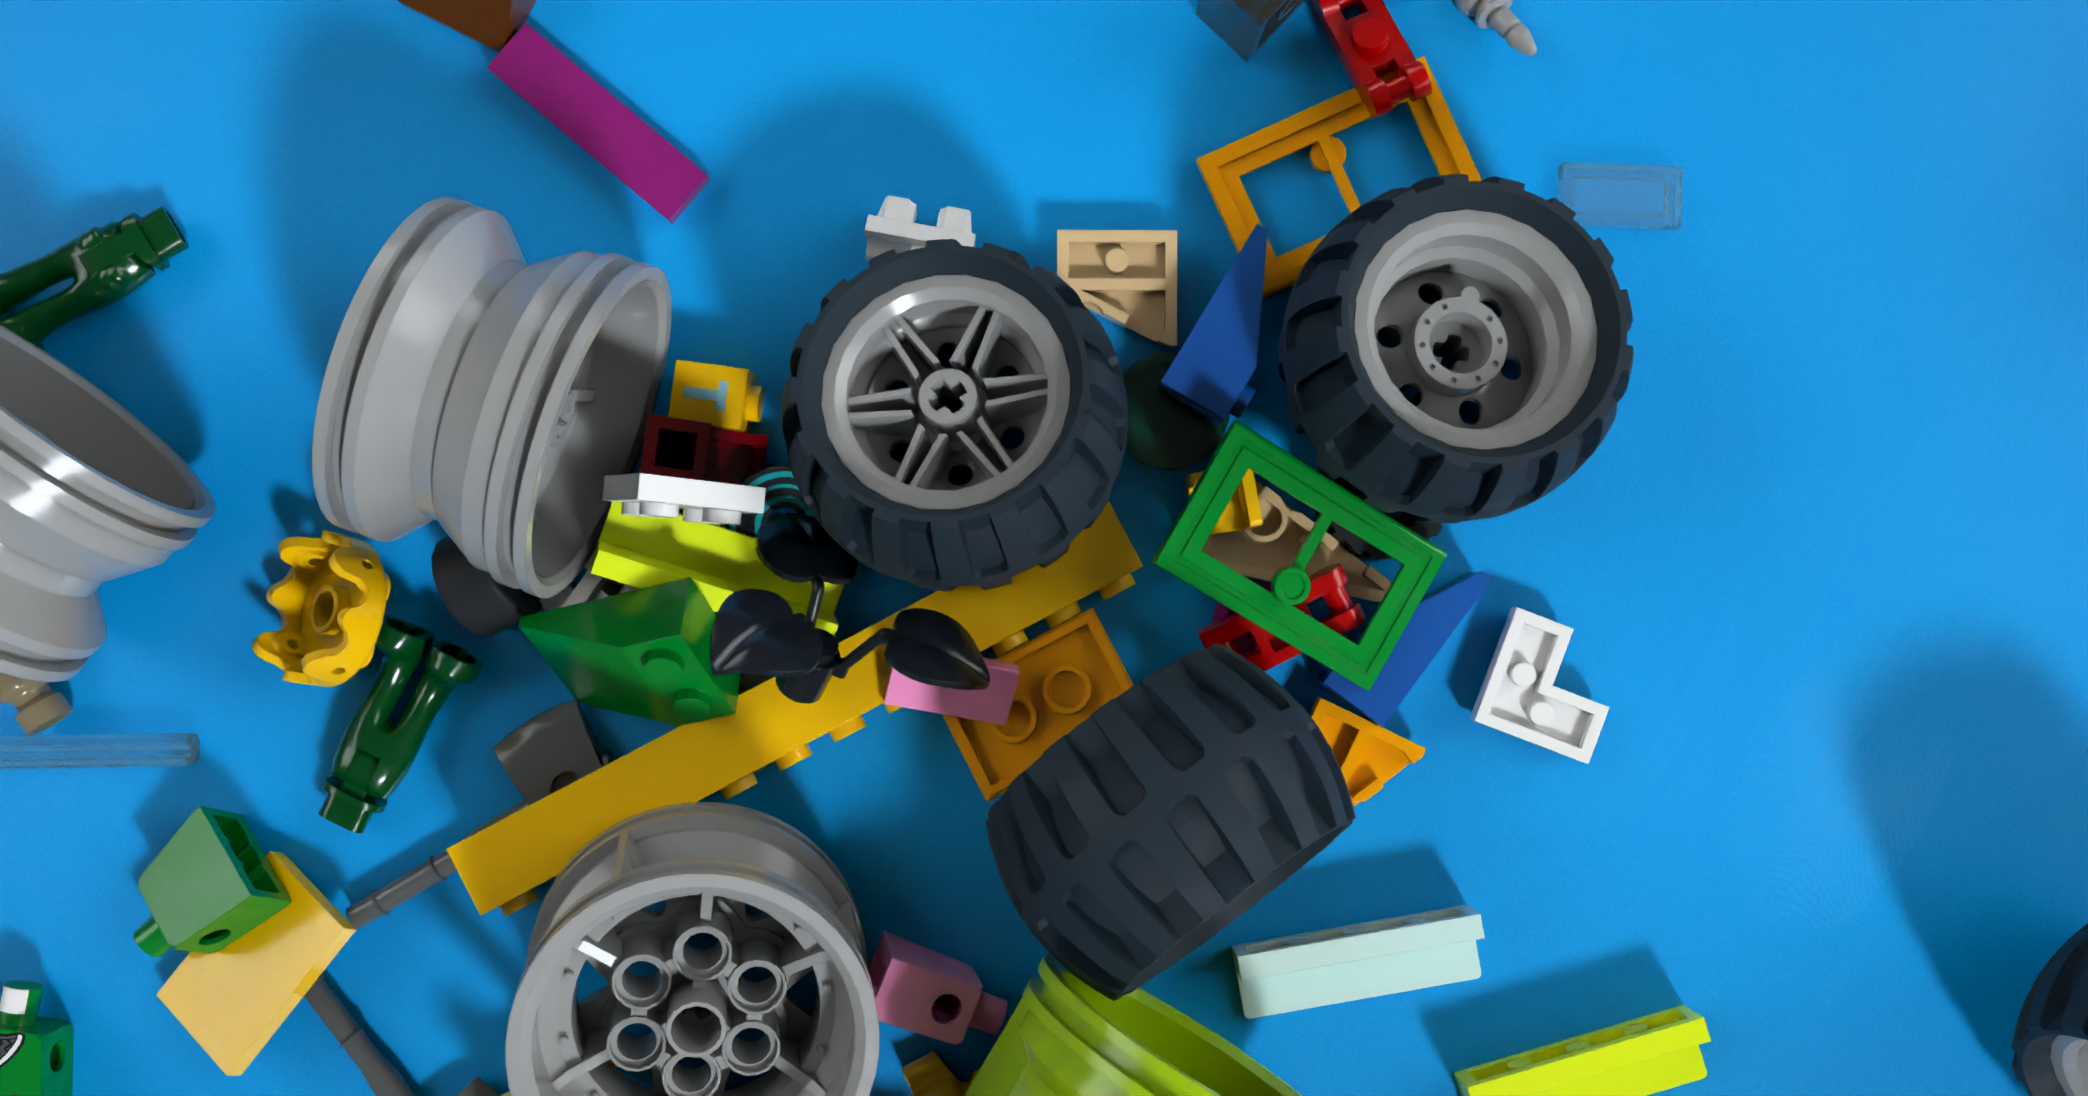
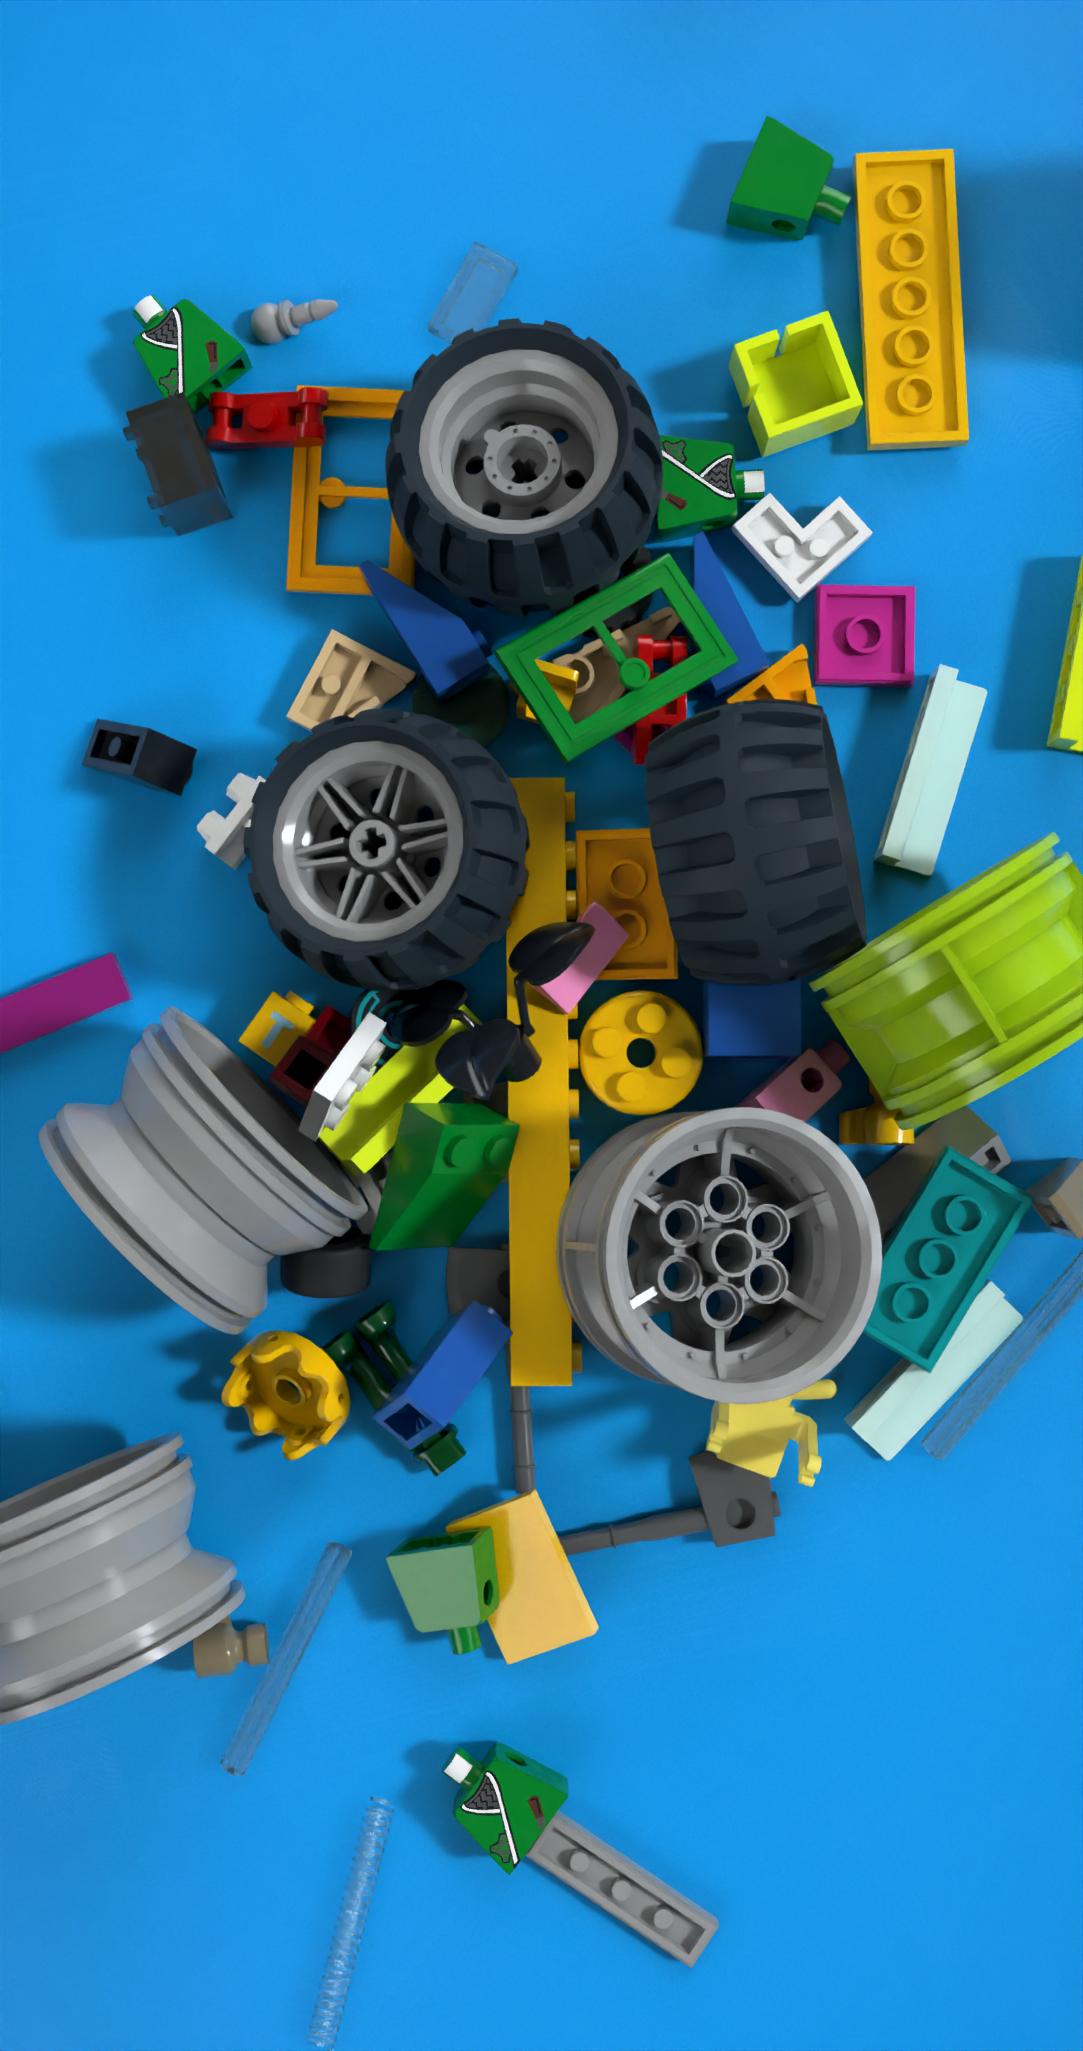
camera: 60 degrees left, 0 degrees up
(421, 770) = (443, 1374): none -> blue brick
(930, 793) = (676, 1058): none -> yellow plate
(932, 96) = (140, 756): none -> black slope
(973, 911) = (751, 1021): none -> blue piece
(1471, 811) = (864, 636): none -> dark pink tile
(1540, 551) = (701, 488): none -> green torso
(1701, 603) = (799, 392): none -> neon yellow piece
(1868, 673) = (910, 299): none -> yellow plate
(1922, 472) = (785, 185): none -> green torso

